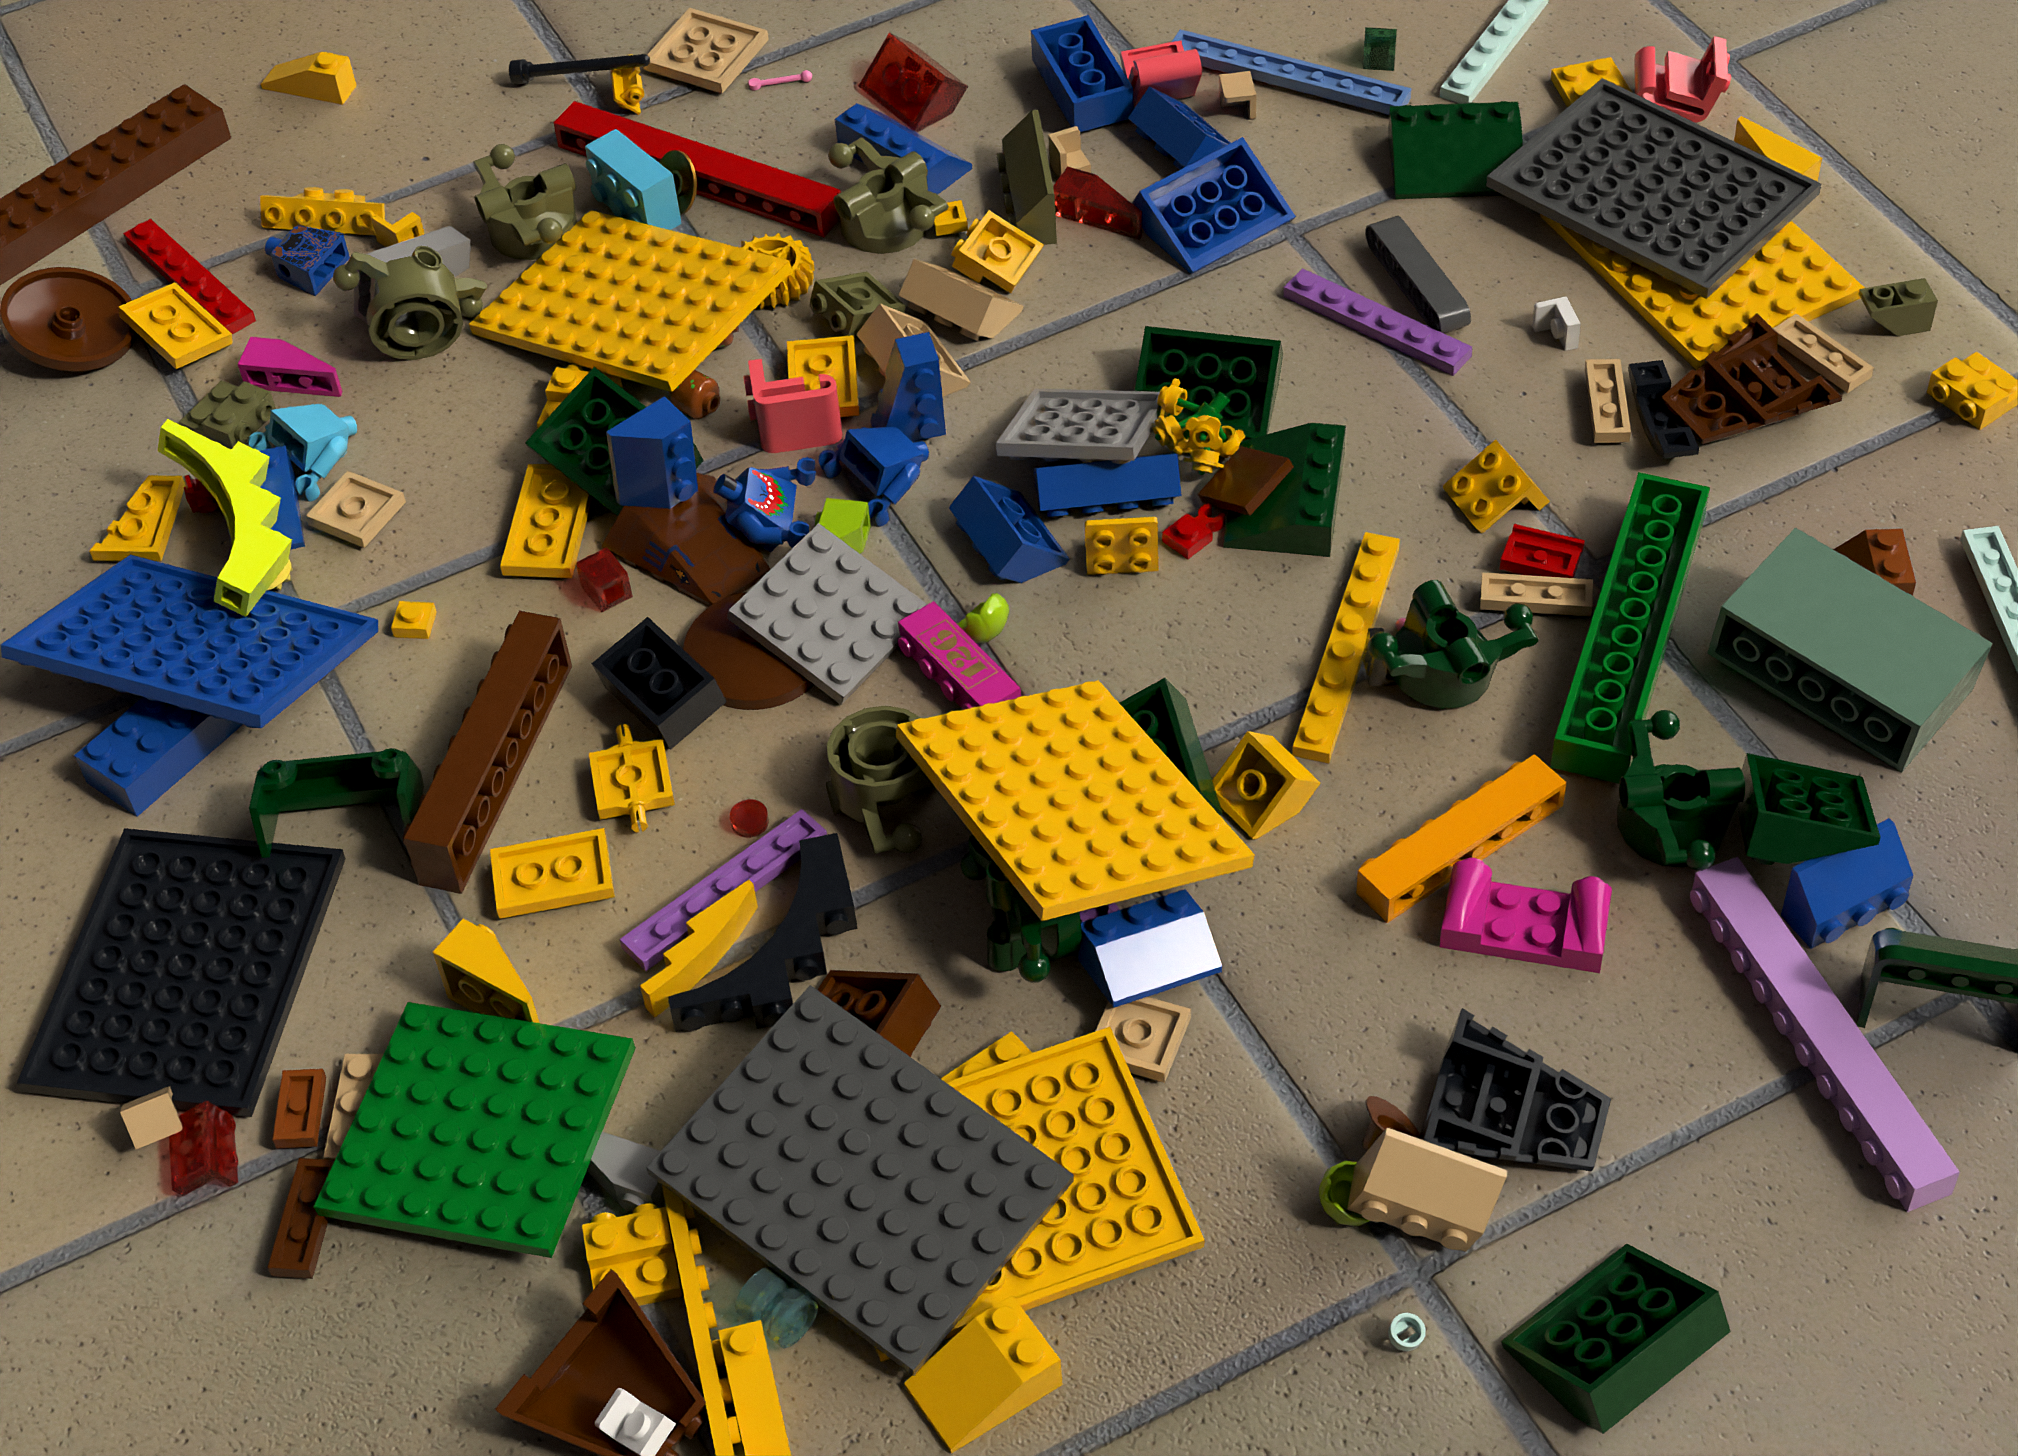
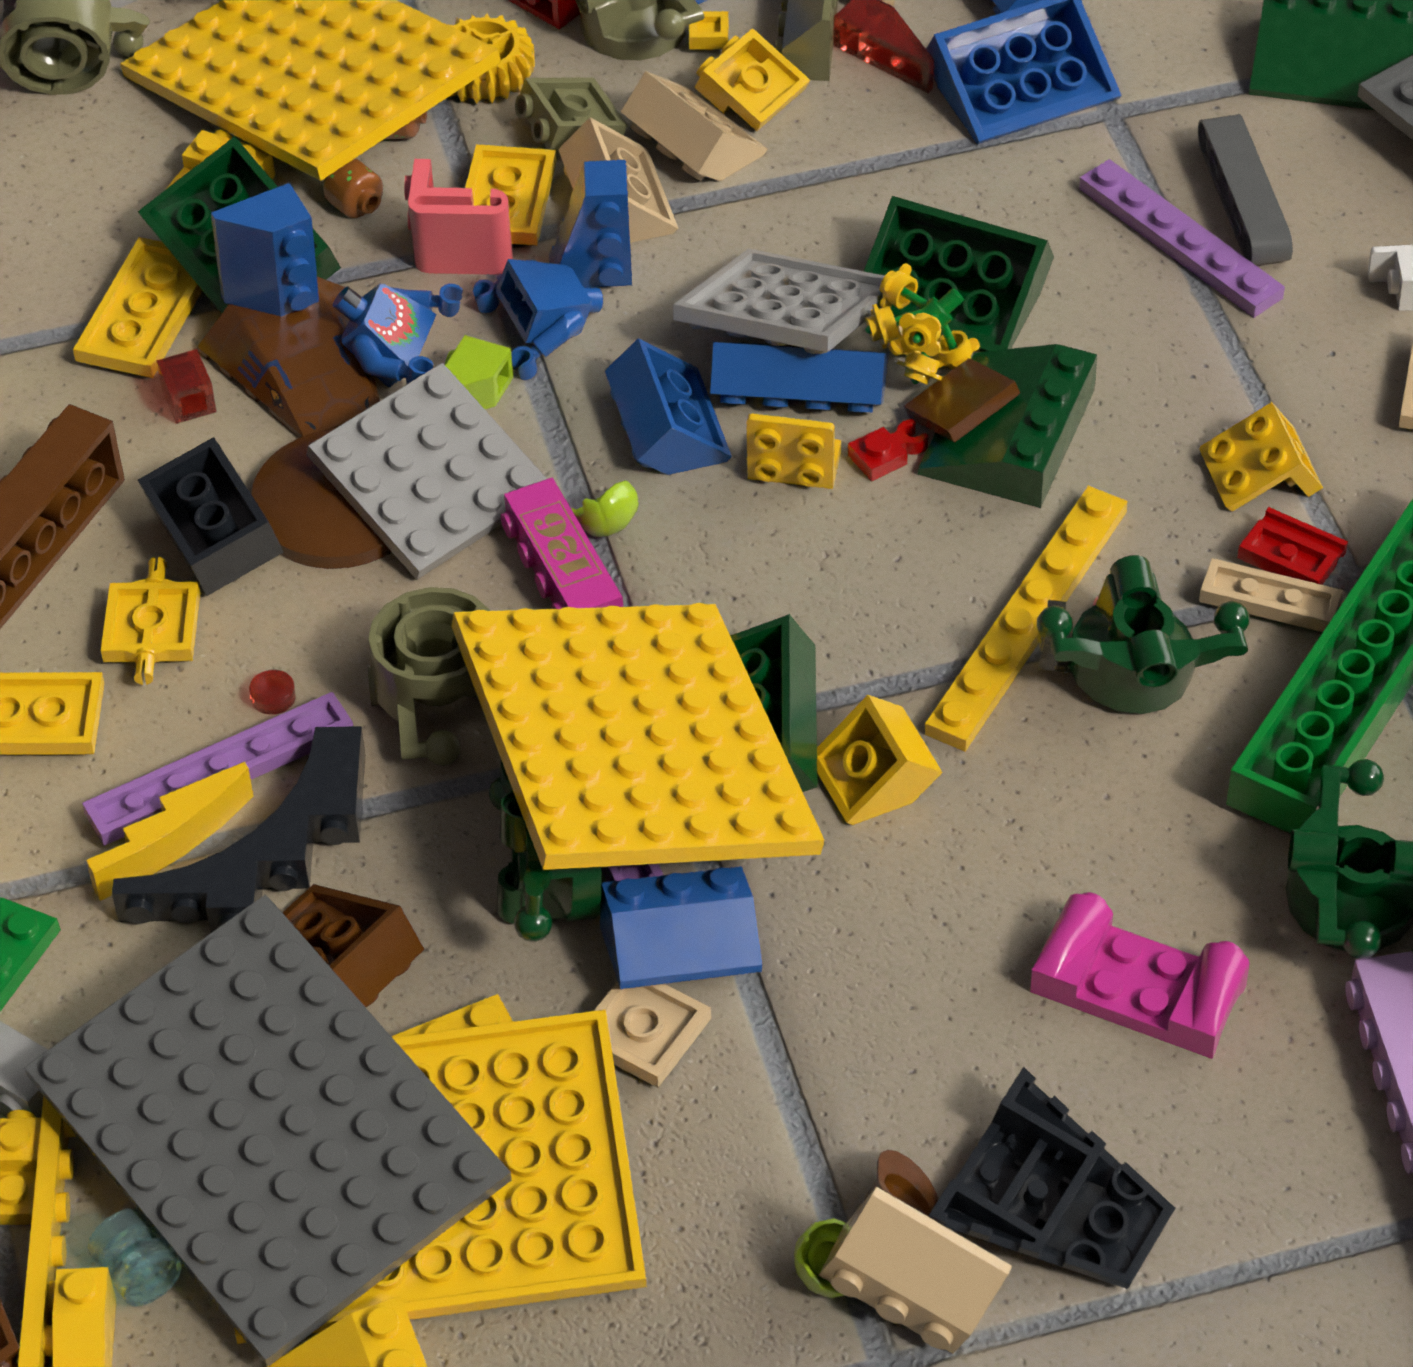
camera: 10 degrees right, 0 degrees up
(1469, 829) = (1102, 860): light orange brick -> none

